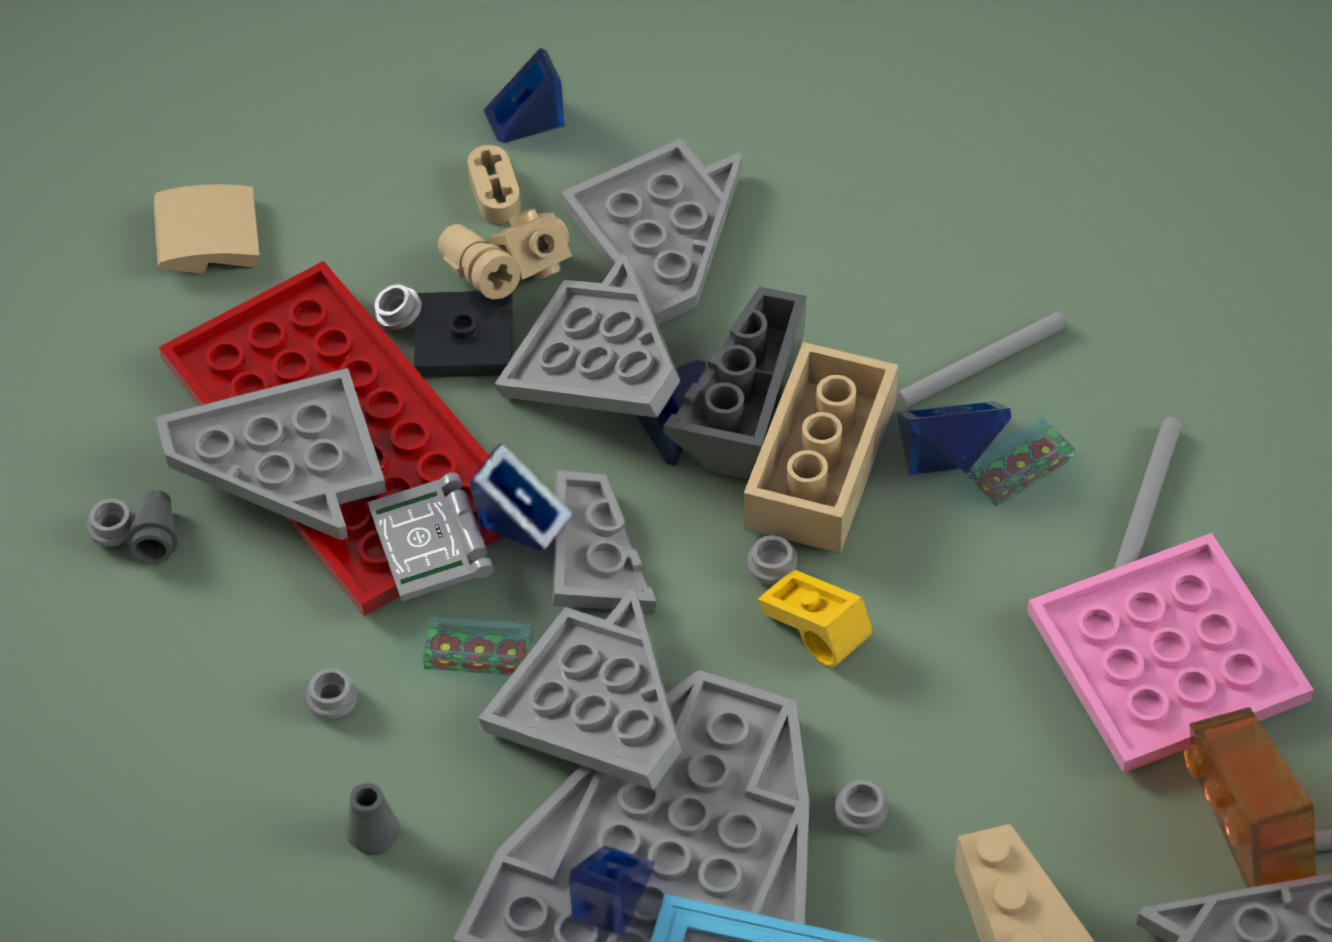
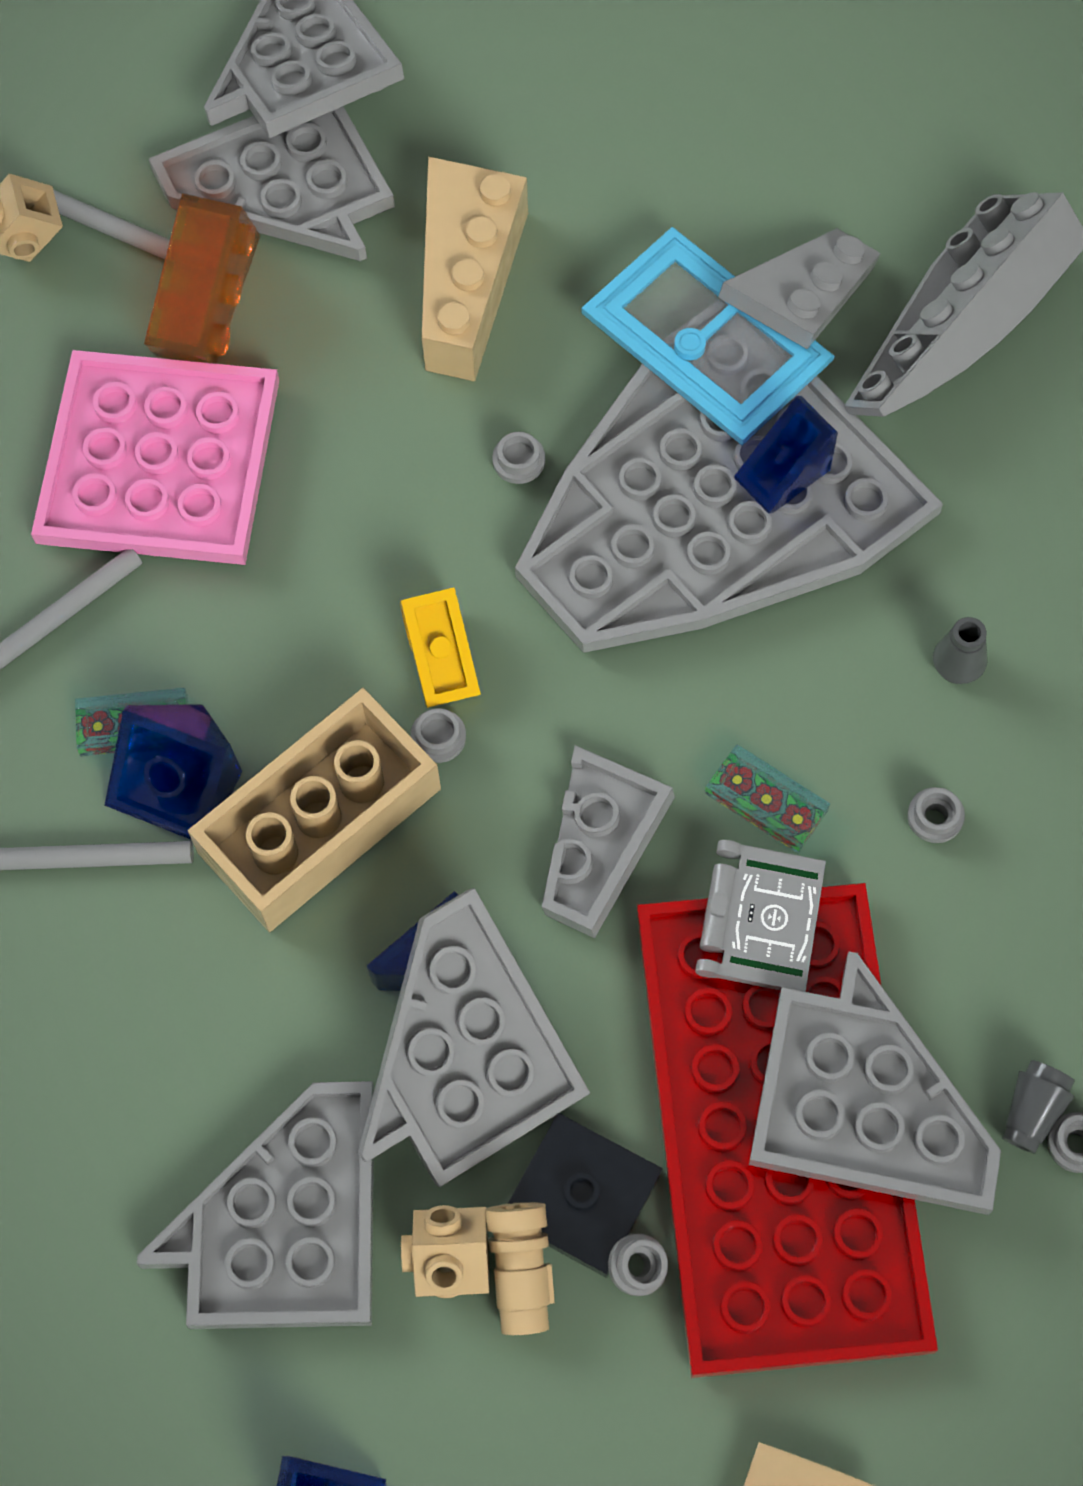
camera: 150 degrees left, 15 degrees up
(502, 182) = (416, 1397): tan beam -> none
(515, 501) = (659, 884): clear blue slope -> none
(592, 697) = (697, 656): light grey wing -> none
(740, 390) = (353, 902): dark grey wedge -> none

